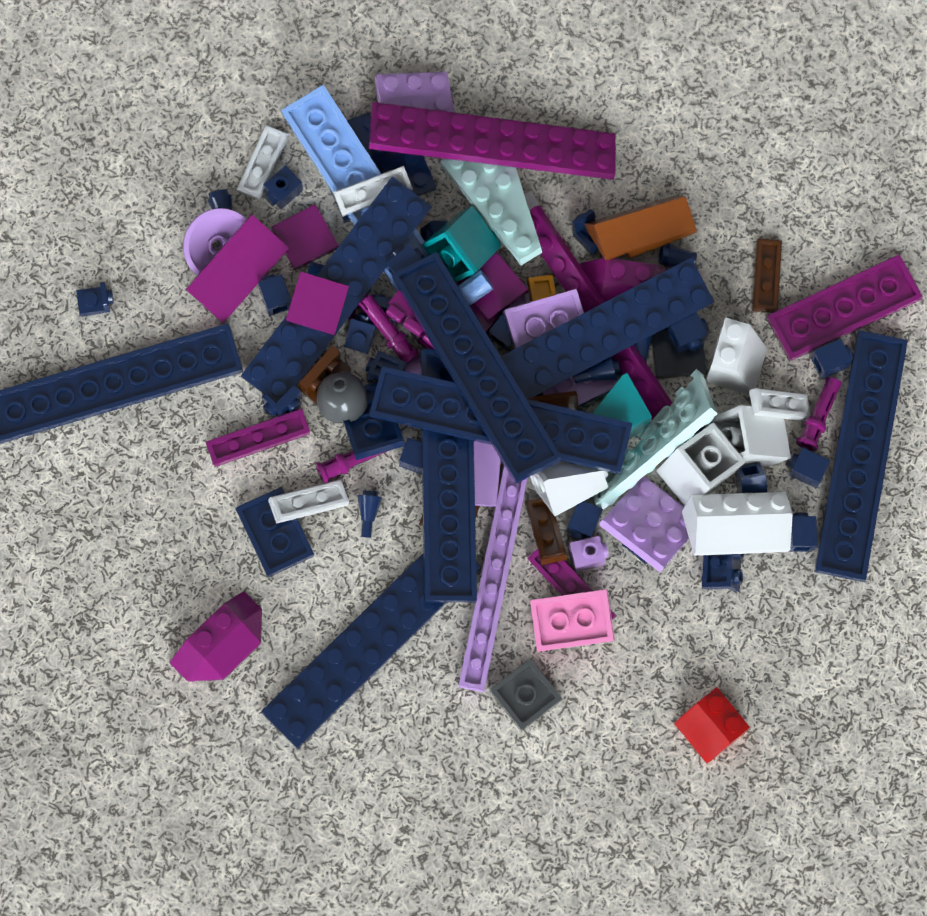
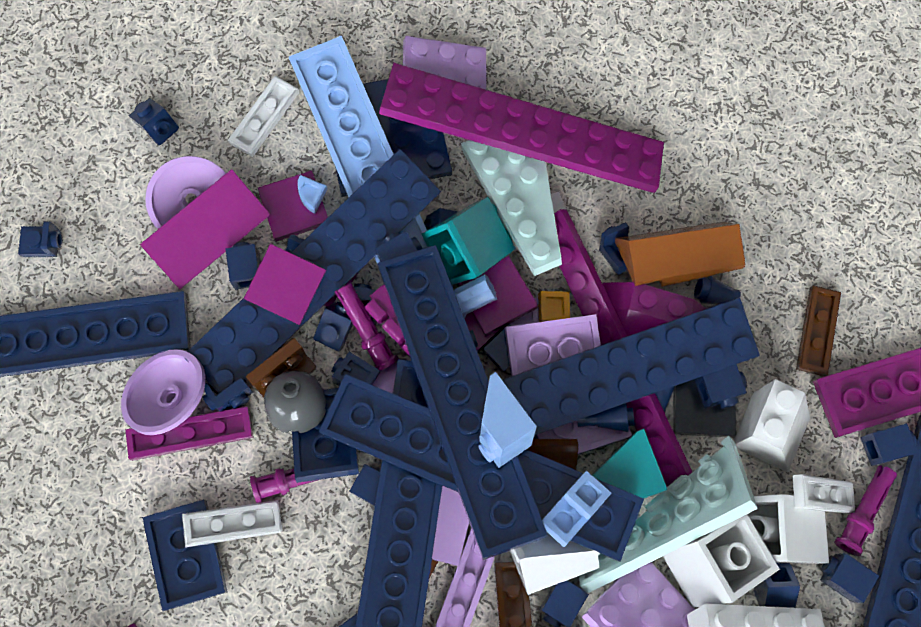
camera: 10 degrees right, 0 degrees up
(168, 181) = (154, 121): none -> dark blue bracket
(220, 199) = (206, 148): dark blue cone -> none
(225, 399) = (163, 392): none -> lavender dish
(282, 188) = (278, 146): dark blue brick -> none
(319, 224) = (311, 193): none -> light blue tile
(364, 193) = (361, 165): white tile -> none
(368, 505) = (304, 540): dark blue cone -> none
(517, 379) = (505, 424): none -> light blue slope
(580, 437) = (575, 508): none -> light blue slope

